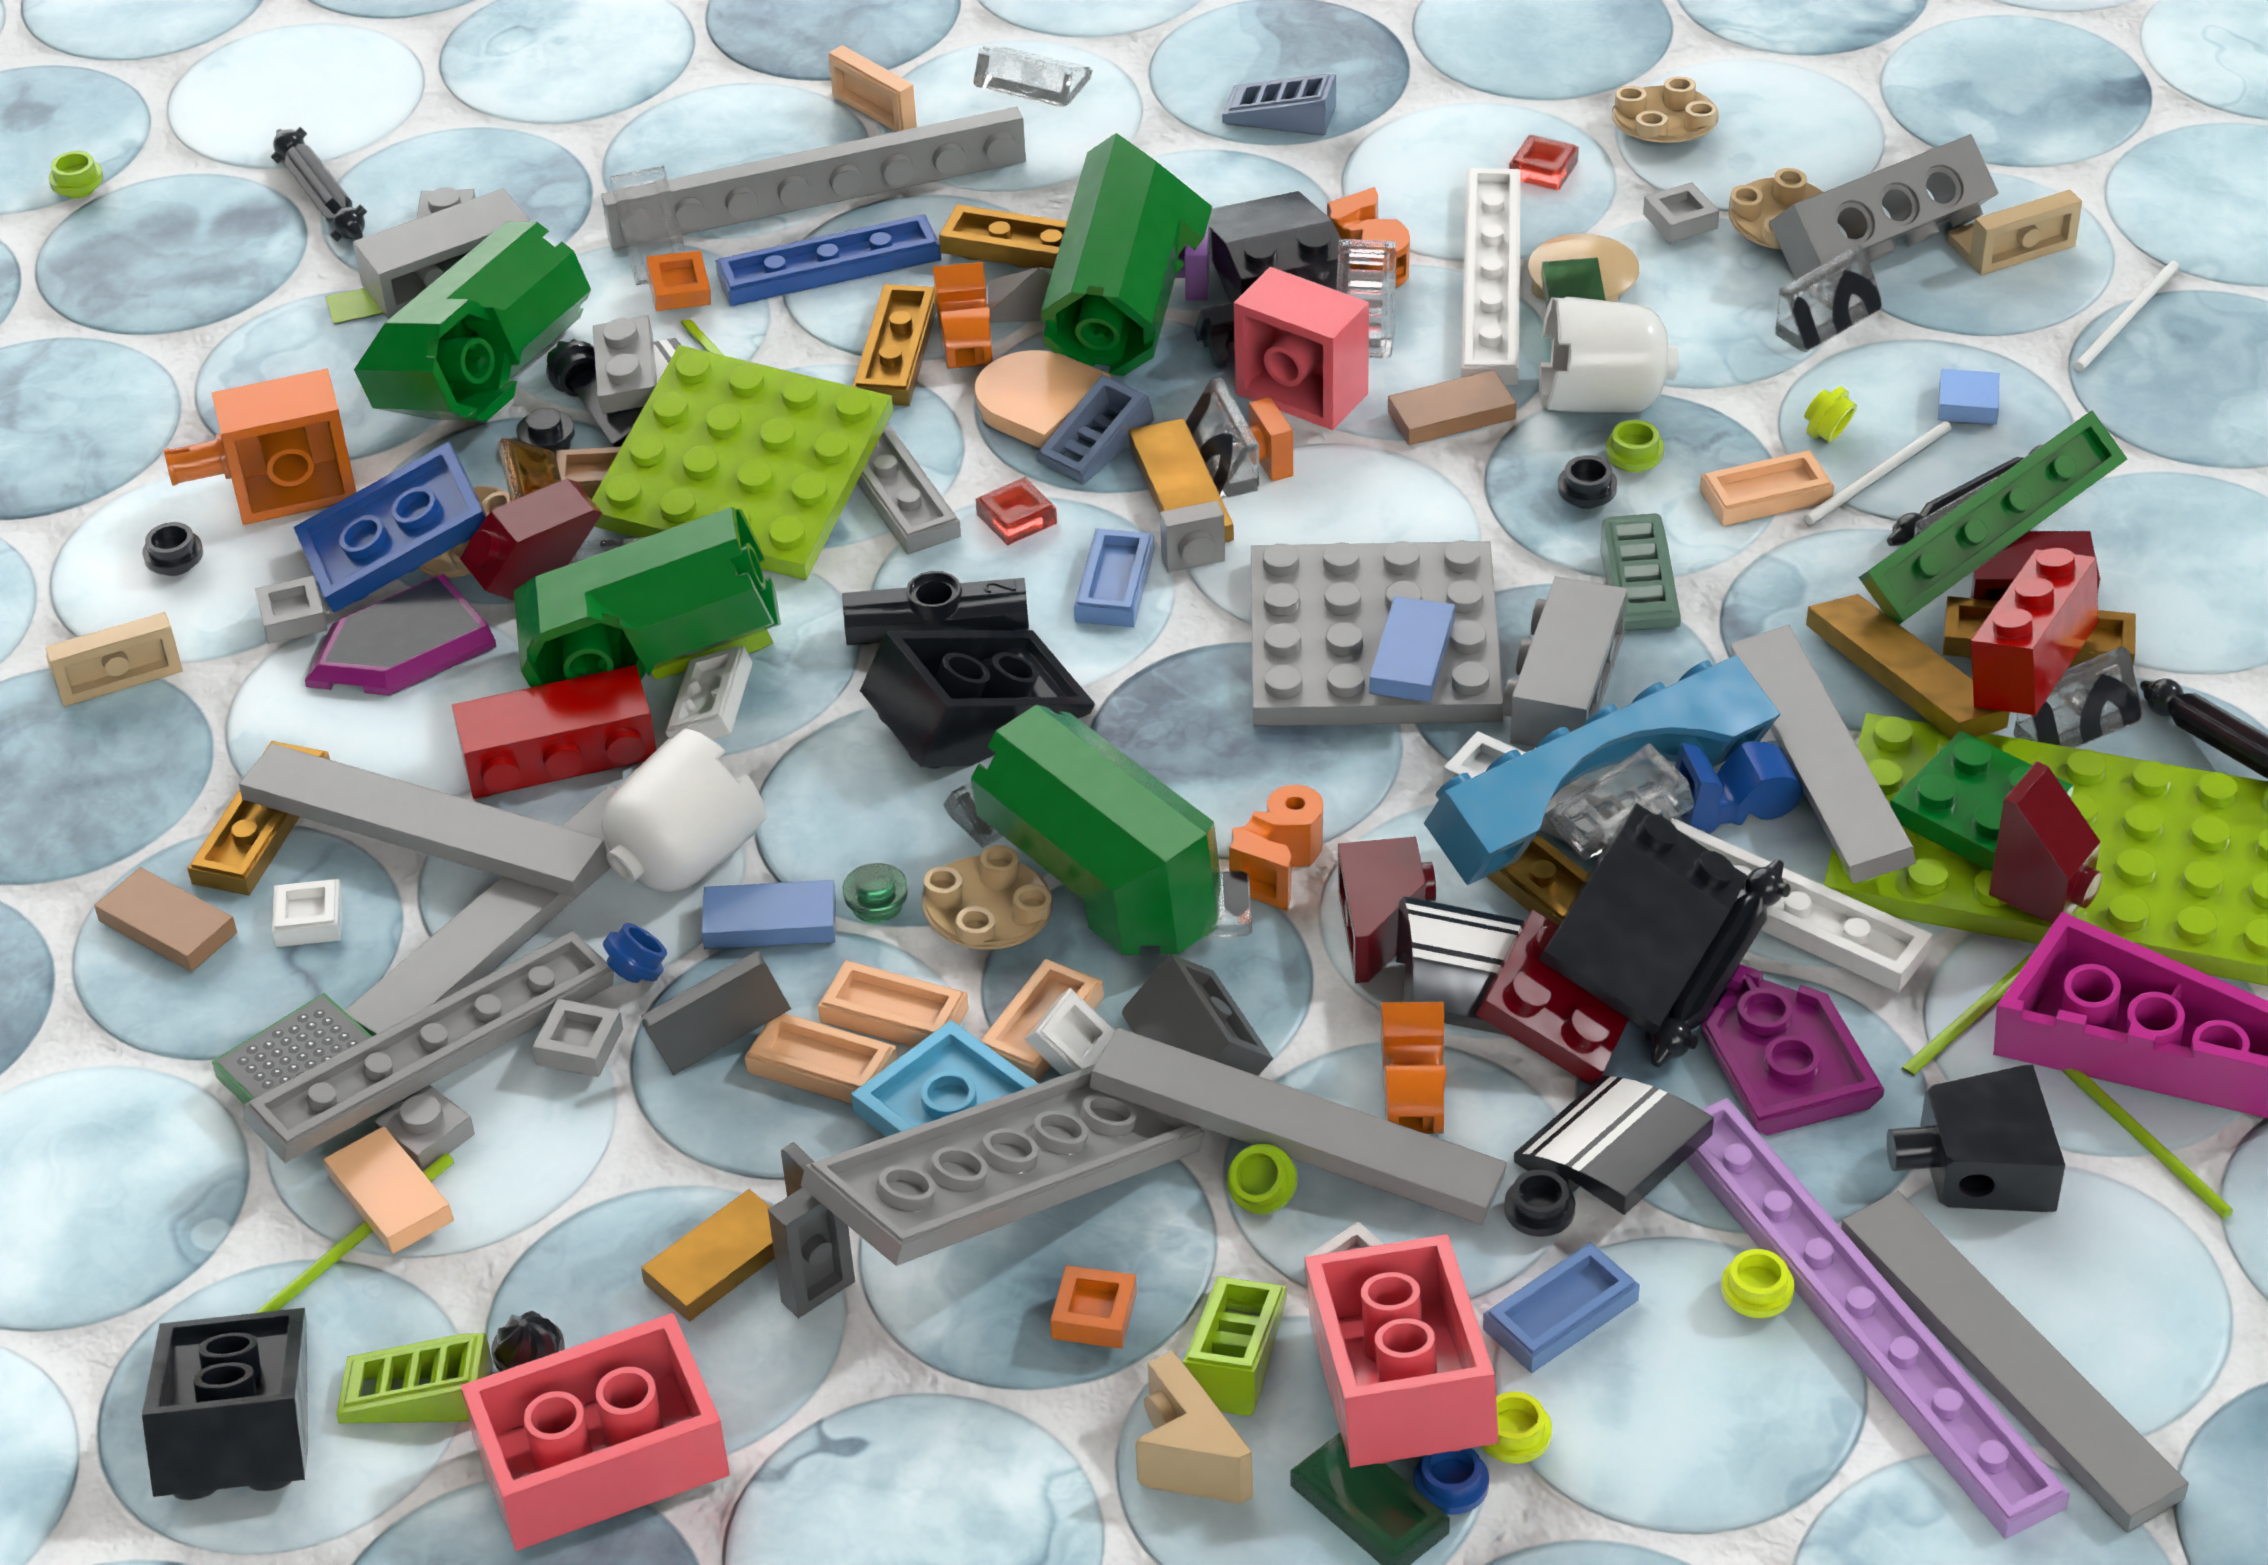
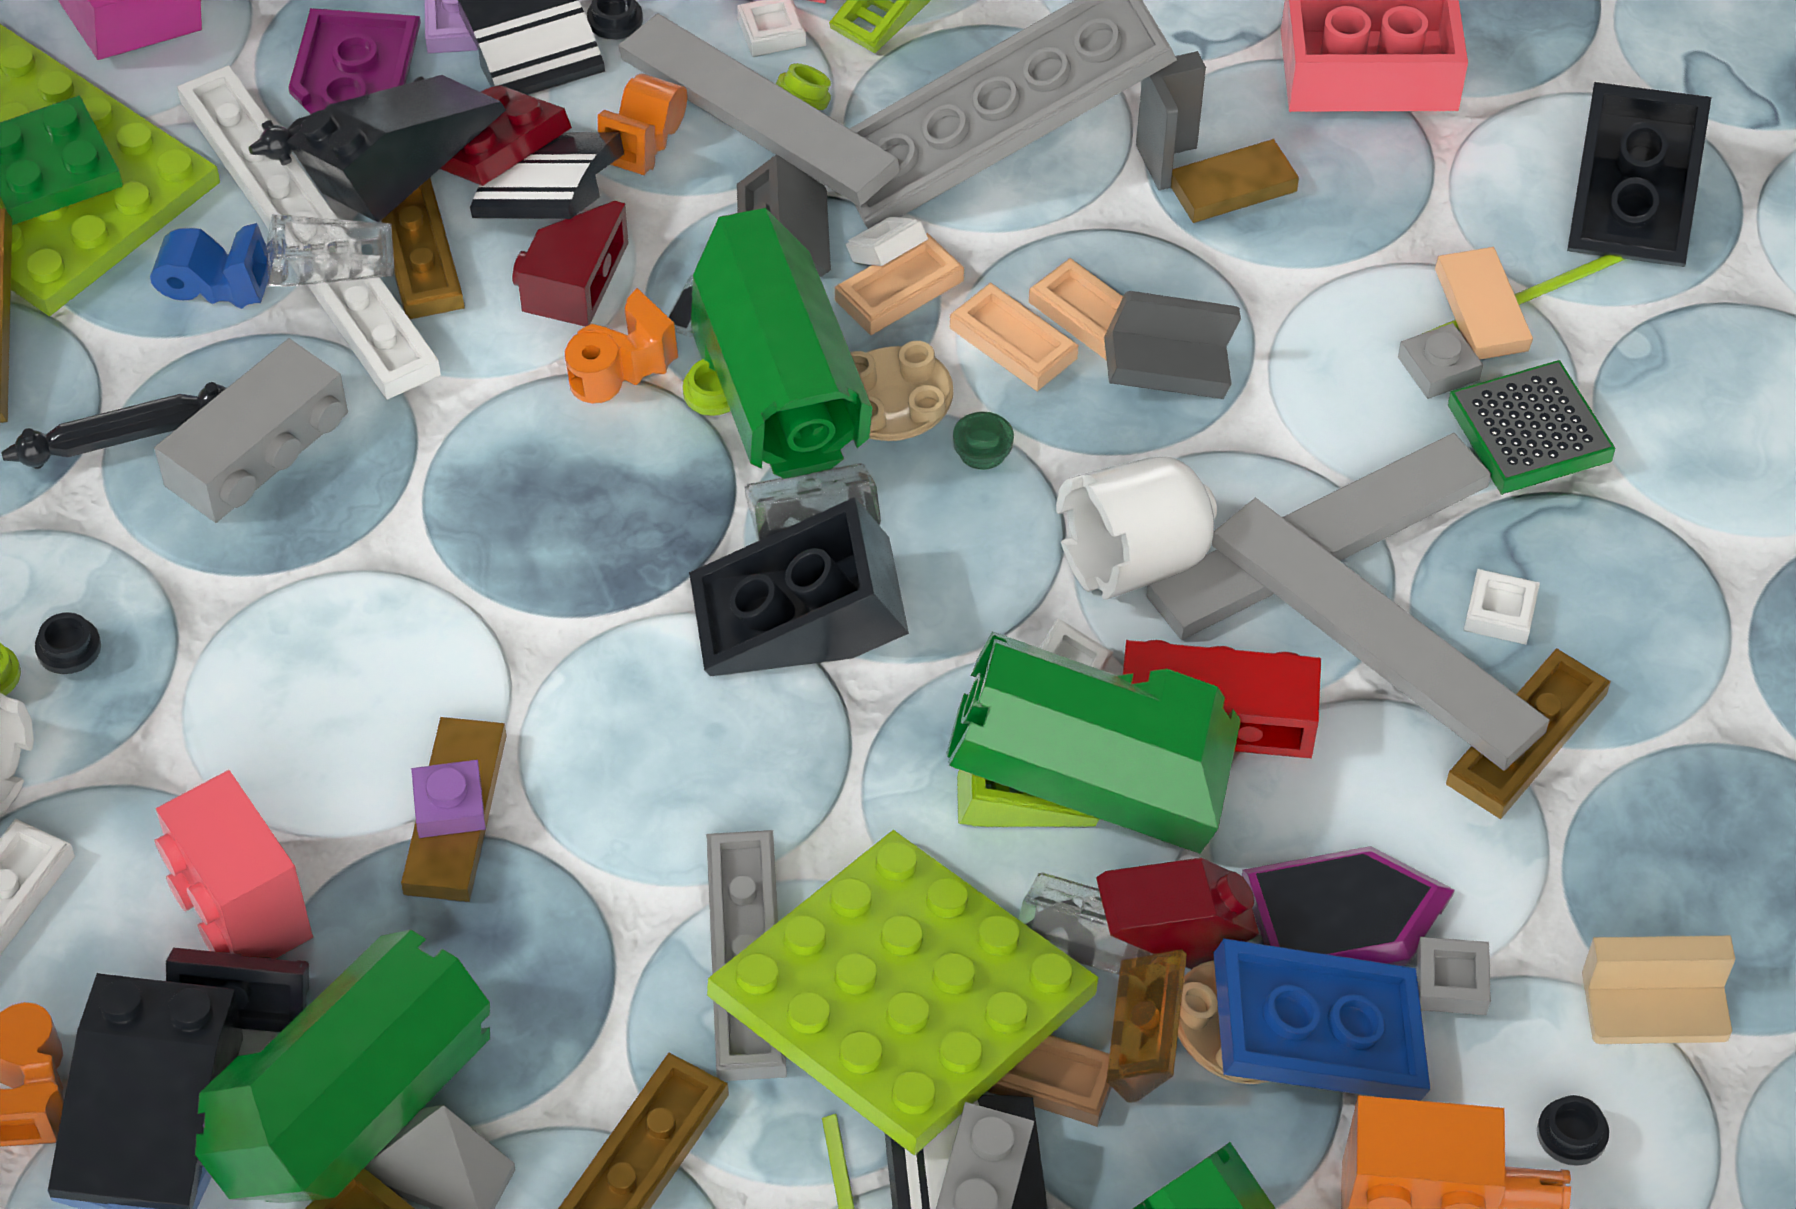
camera: 160 degrees left, 10 degrees up
(165, 919) = (1638, 643): tile -> none
(425, 1047) = (1418, 393): light grey tile -> none
(455, 1356) = (1462, 150): lime slope -> none
(525, 1340) = (1402, 151): black plate -> none
(546, 429) = (1101, 1156): black plate -> none
(577, 1037) = (1291, 380): light grey plate -> none
(635, 954) = (1217, 439): blue plate -> none
(769, 914) = (1070, 448): medium blue tile -> none
(935, 604) = (759, 702): black piece -> none
(936, 1080) = (1008, 226): medium azure plate -> none
(963, 314) = (557, 1120): orange leg -> none
(1016, 511) = (638, 841): clear red tile -> none
(1032, 393) = (539, 998): light nougat tile -> none
(1093, 1306) = (970, 37): orange plate -> none
(1103, 398) = (454, 918): sand blue slope -> none
(1114, 577) = (587, 715): medium blue tile -> none
(1180, 463) = (448, 798): none -> medium lavender plate
(1192, 536) = (493, 700): light grey plate -> none
(1225, 441) = (380, 834): clear slope -> none
(1273, 437) = (337, 806): orange plate -> none
(1323, 620) = (387, 558): light grey plate -> none
(1371, 253) = (111, 935): clear slope -> none
(1412, 649) = (384, 468): medium blue tile -> none
(1451, 407) = (109, 803): medium nougat tile -> none
(1496, 815) = (218, 309): dark azure arch -> none
(1639, 559) = (105, 555): sand green slope -> none
(1690, 640) = (109, 428): none -> black wheel
(1826, 758) = (119, 265): light grey tile -> none
(1965, 1020) = (187, 61): lime piece -> none
(2044, 849) = (62, 61): dark red slope -> none

